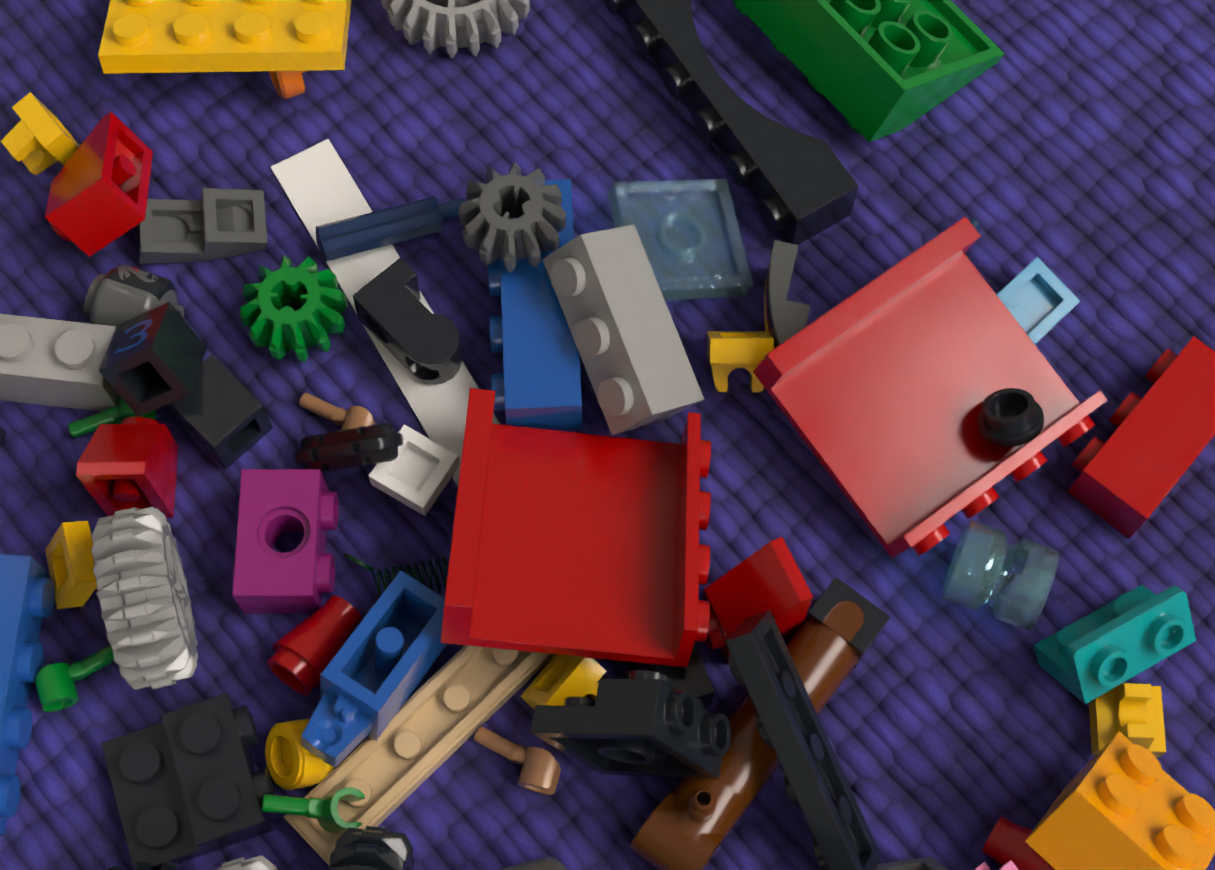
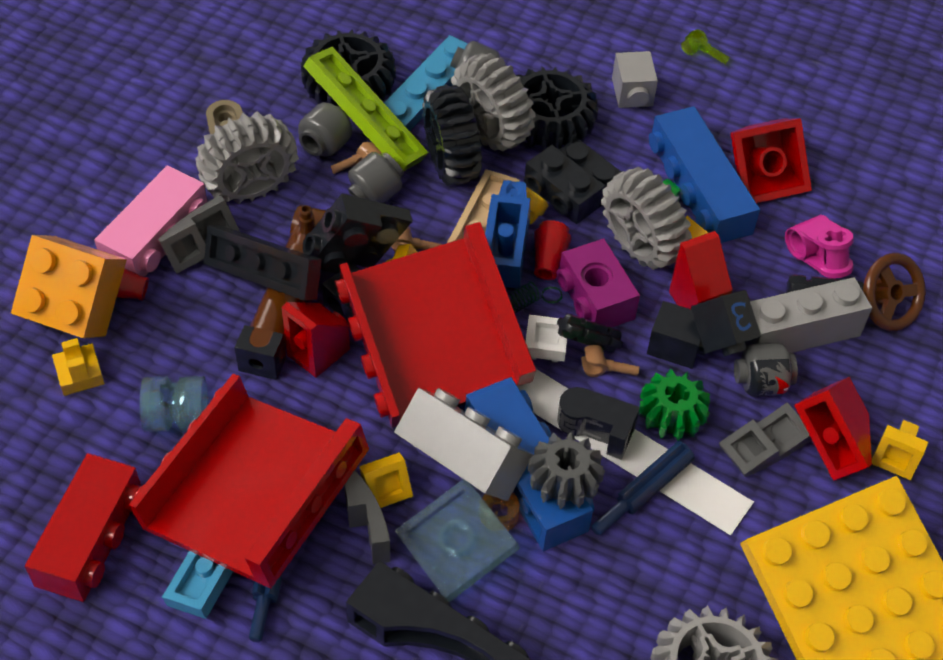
camera: 155 degrees right, 15 degrees down
(322, 809) = (493, 180): green hand -> none
(1010, 417) = (190, 479): black plate -> none
(1117, 641) = (94, 393): teal bracket -> none

